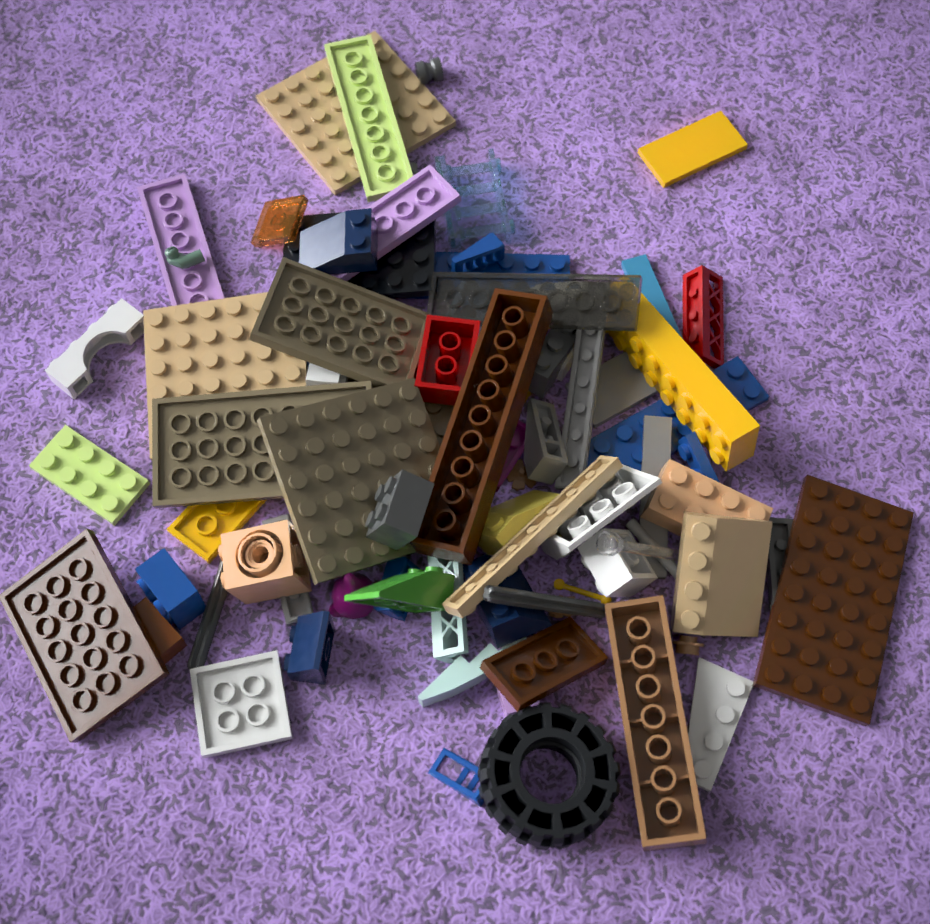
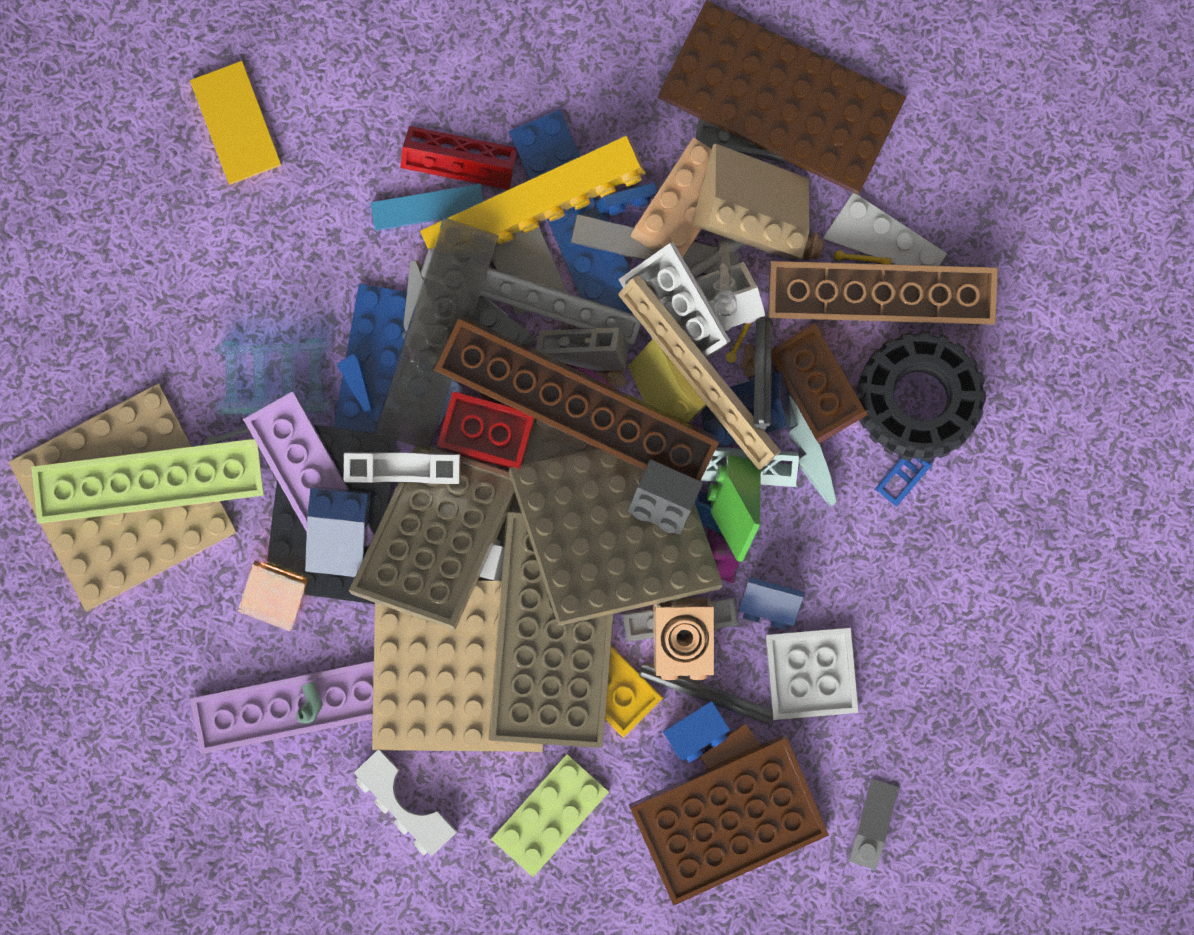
camera: 85 degrees left, 20 degrees up
(80, 787) = (873, 824): none -> light grey slope
(401, 273) = (402, 467): none -> white arch
(427, 71) = (82, 404): dark grey wheel -> none
(684, 678) = (840, 255): none -> yellow hinge

